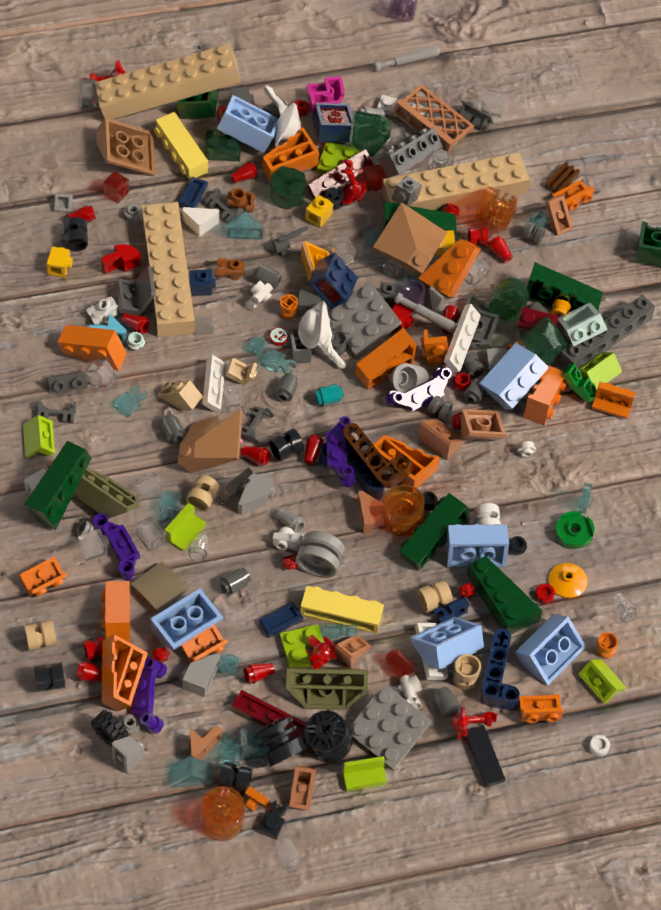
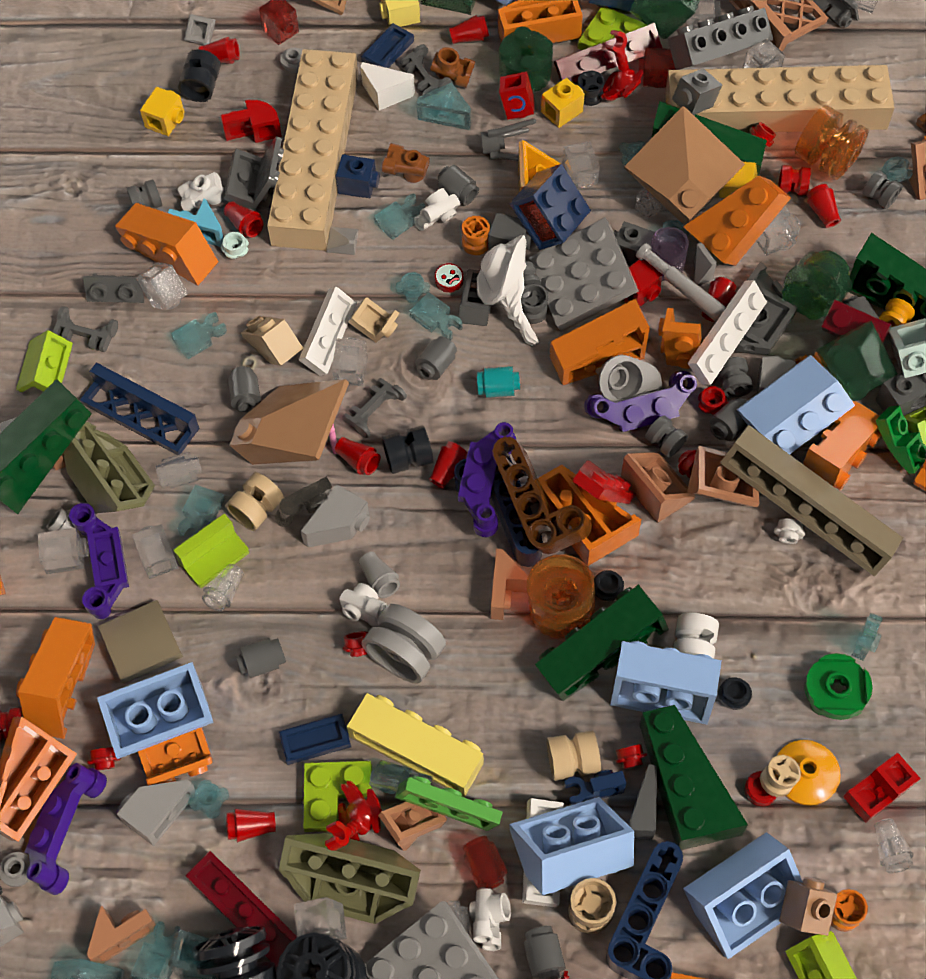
camera: 20 degrees right, 5 degrees up
(69, 317) = (145, 195): none -> dark grey wheel
(116, 448) = (144, 400): none -> dark blue fence
(234, 304) = (397, 218): none -> clear light blue plate
(289, 212) = (517, 95): none -> red brick
(315, 705) = (320, 916): none -> clear brick
(372, 634) = (449, 803): none -> bright green plate
(413, 440) = (603, 485): none -> red wing
(482, 614) = (644, 811): none -> dark grey slope
(535, 427) = (812, 501): none -> dark tan brick
(553, 582) = (788, 773): none -> tan wheel
(585, 646) = (808, 906): none -> medium nougat brick
(611, 579) = (881, 787): none -> red slope

